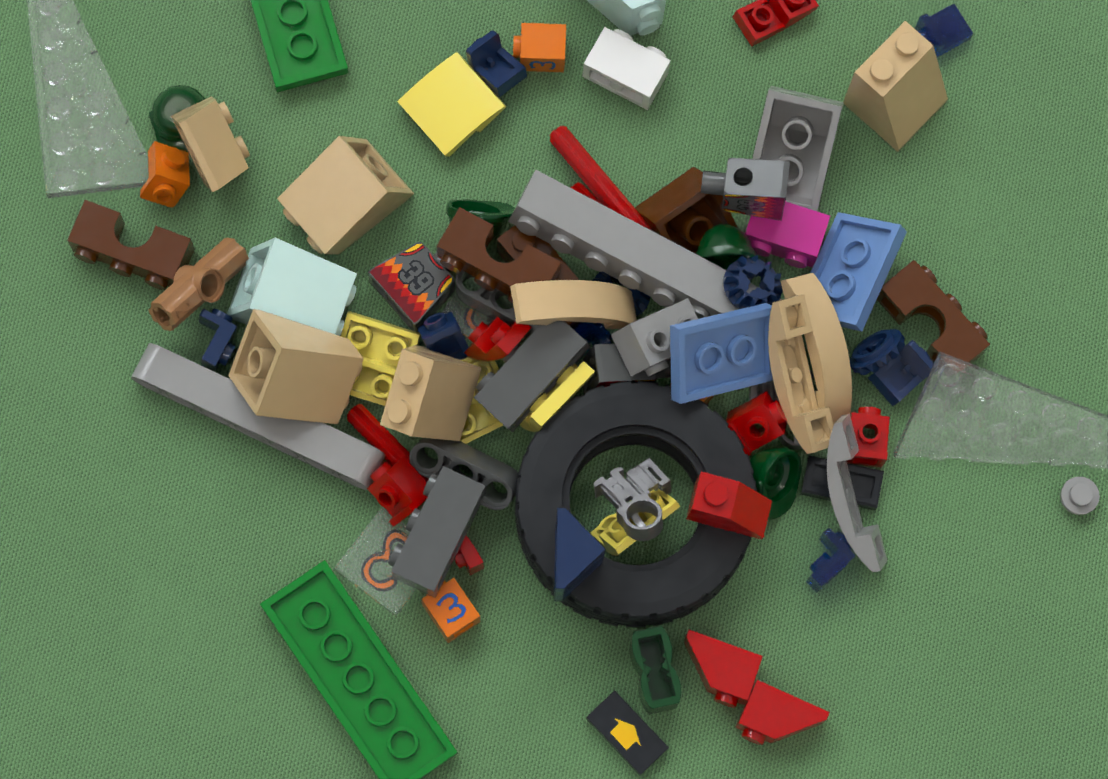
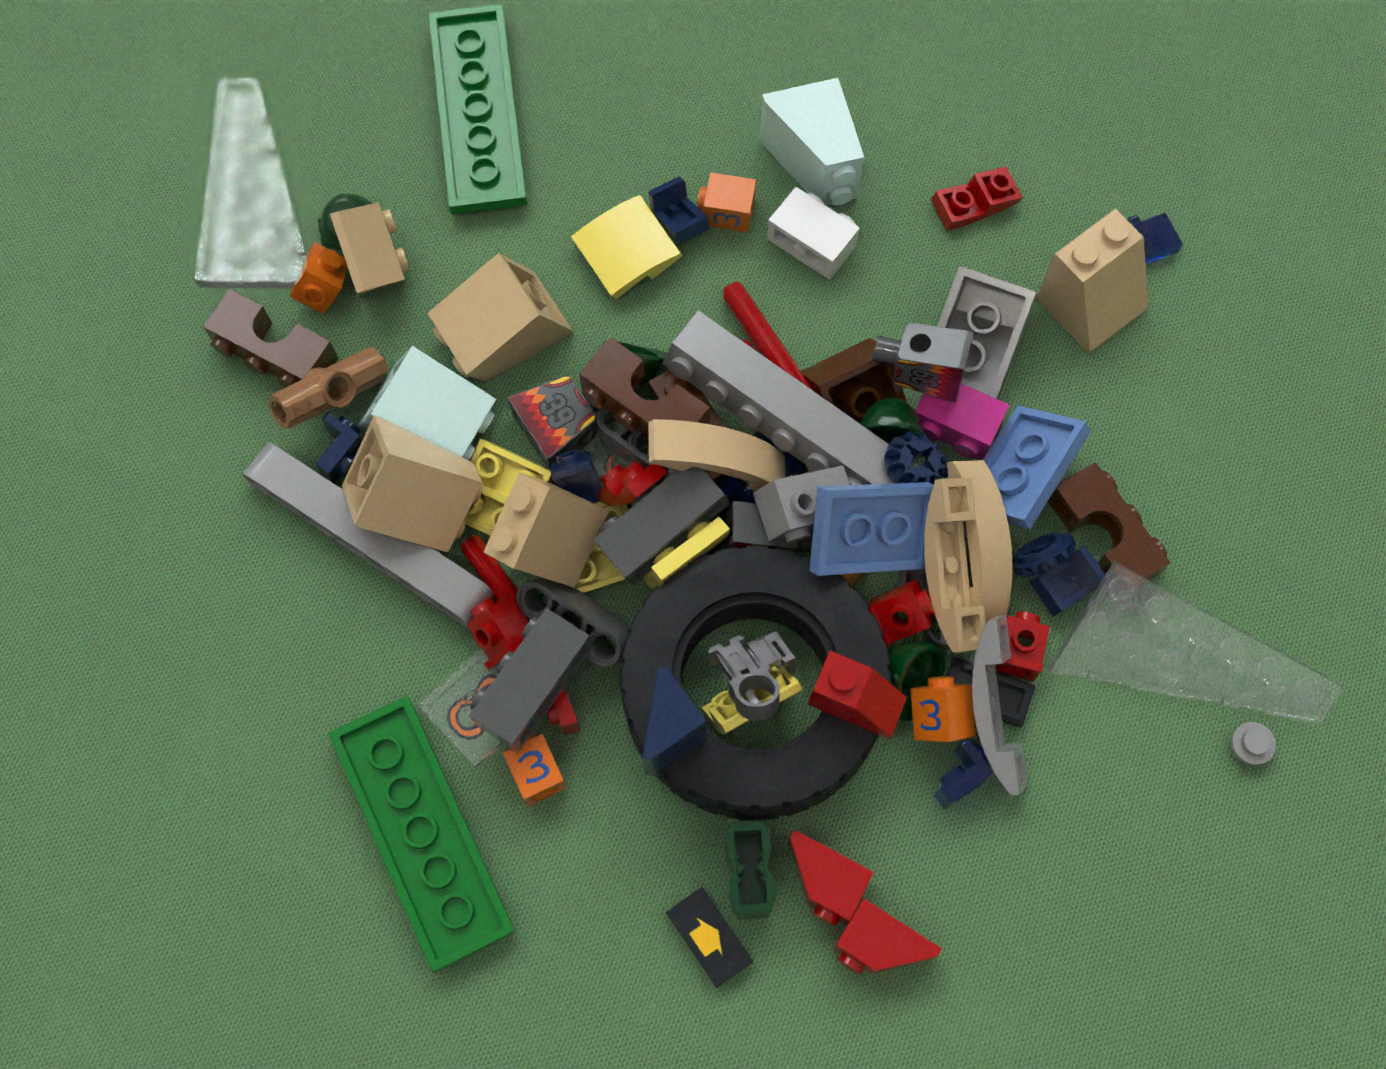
camera: 15 degrees right, 5 degrees down
(804, 506) = (942, 710): none -> orange brick

